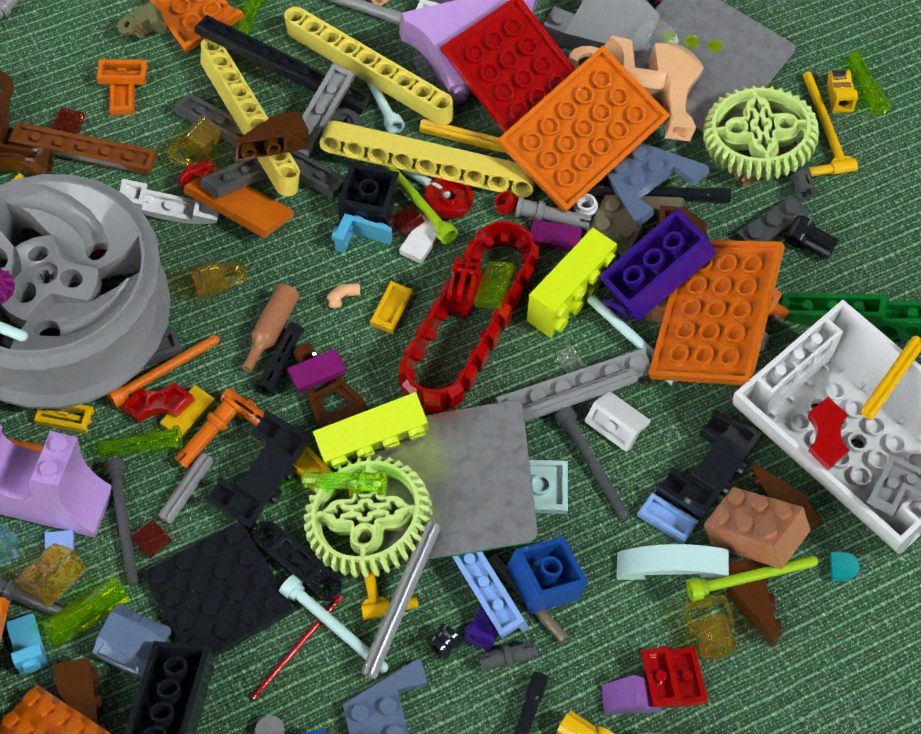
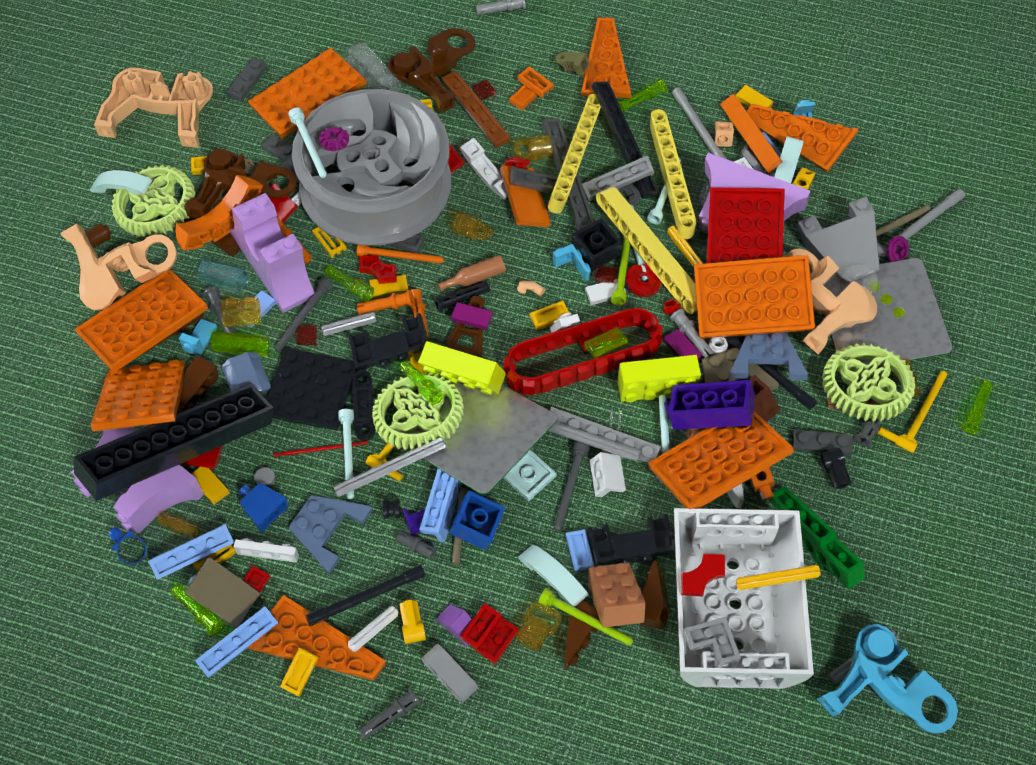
camera: 45 degrees right, 0 degrees up
(275, 136) = (567, 170): reddish brown slope -> none
(427, 299) = (564, 321): none -> white plate
(465, 274) = (589, 326): red arm -> none
(841, 89) = (954, 398): yellow leg -> none
(843, 566) = (651, 663): teal tile -> none

